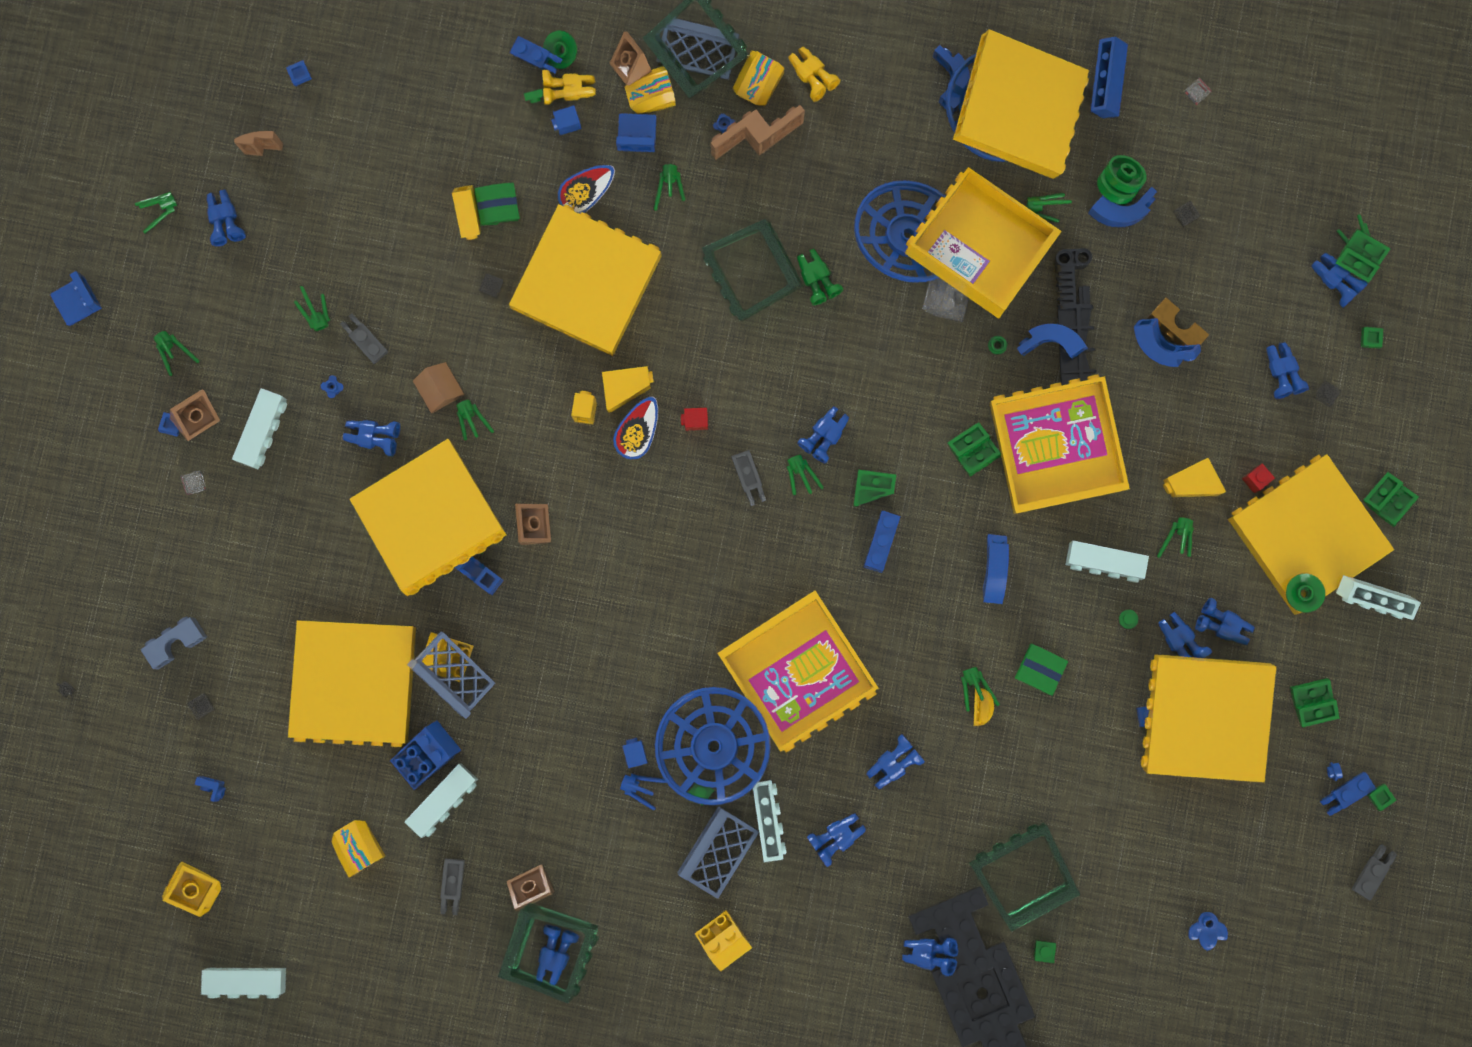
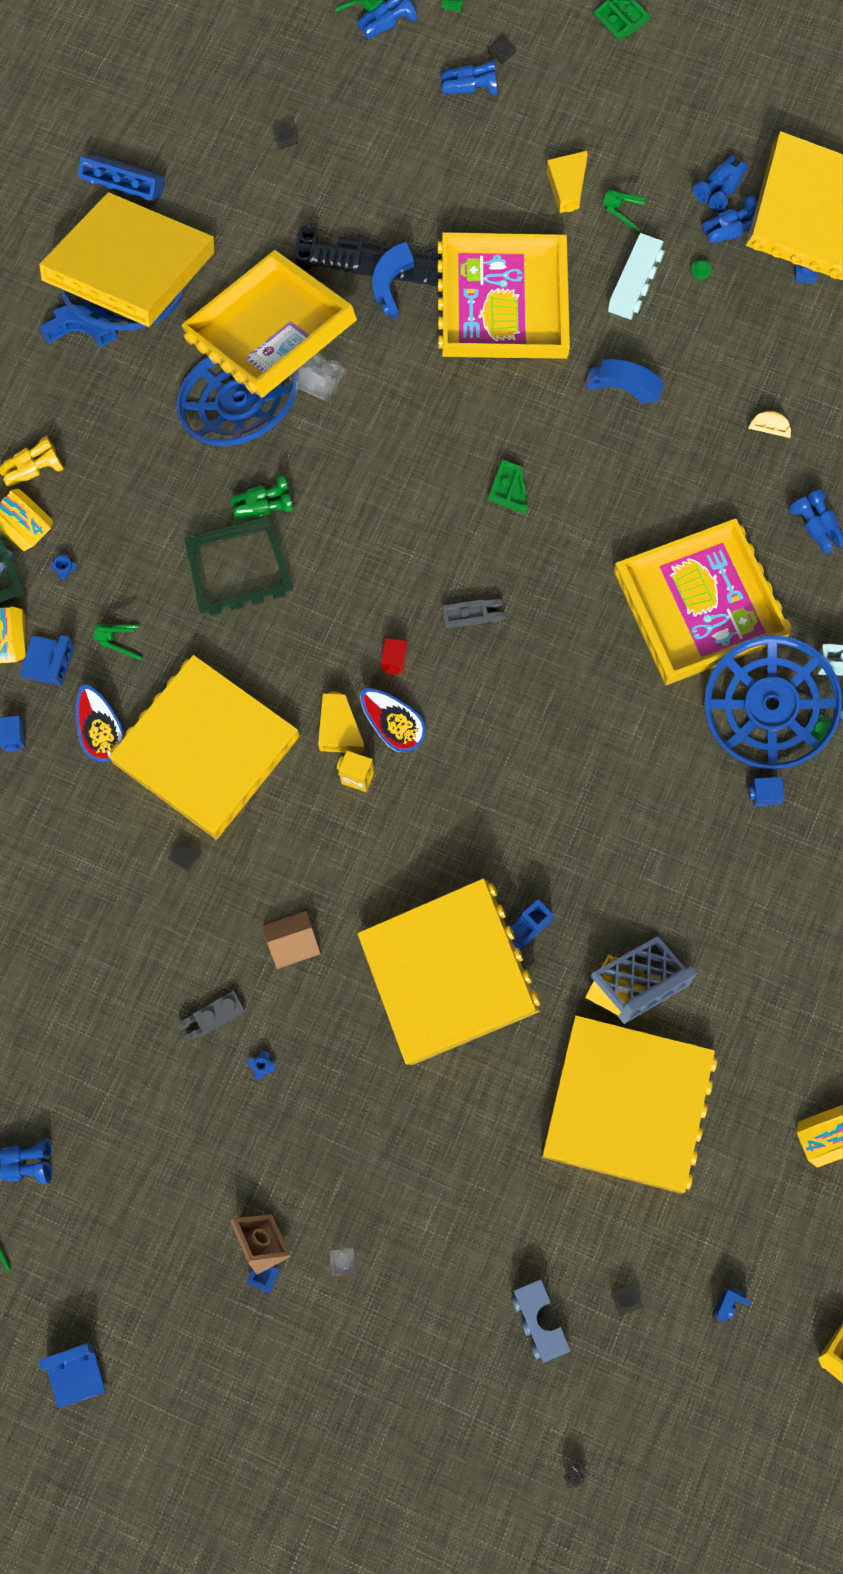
camera: 75 degrees left, 10 degrees down
(165, 343) = (157, 1265): green plant -> none
(259, 429) = (294, 1161): light aqua brick -> none
(318, 321) = (176, 1066): green plant -> none
(368, 431) = (332, 1033): blue piece -> none
(425, 754) = (731, 1032): blue slope -> none
(441, 800) = (788, 1022): light aqua brick -> none
(466, 212) = (88, 864): yellow slope -> none
(466, 411) = (327, 907): green plant -> none
(496, 204) = (88, 831): green slope -> none
(533, 523) = (478, 858): medium nougat slope -> none
(631, 785) = (801, 804): blue plant -> none
(757, 131) = (82, 529): medium nougat bracket -> none
(798, 465) = (470, 560): green plant -> none
(825, 428) = (439, 519): blue piece -> none
(881, 541) = (586, 493): blue arch -> none
(972, 677) = (737, 428): green plant -> none
(974, 449) = (489, 381): green slope -> none
(997, 339) = (381, 333): green plate -> none
(1036, 204) = (238, 270): green plant -> none
(1041, 669) = (740, 360): green slope -> none
(1121, 179) = (234, 182): green wheel -> none
(1122, 216) = (268, 202): blue arch -> none
(1159, 349) = (424, 183): blue arch -> none
(1166, 314) = (390, 176): pearl gold arch -> none
(1198, 91) = (158, 102): clear plate -> none
(1258, 478) = (577, 122): red brick -> none
(1310, 528) = (644, 89): yellow panel -> none
(1314, 592) = (707, 90): green dish -> none
(1314, 702) = (817, 119): green slope -> none
(1377, 597) = (723, 38): light aqua brick -> none

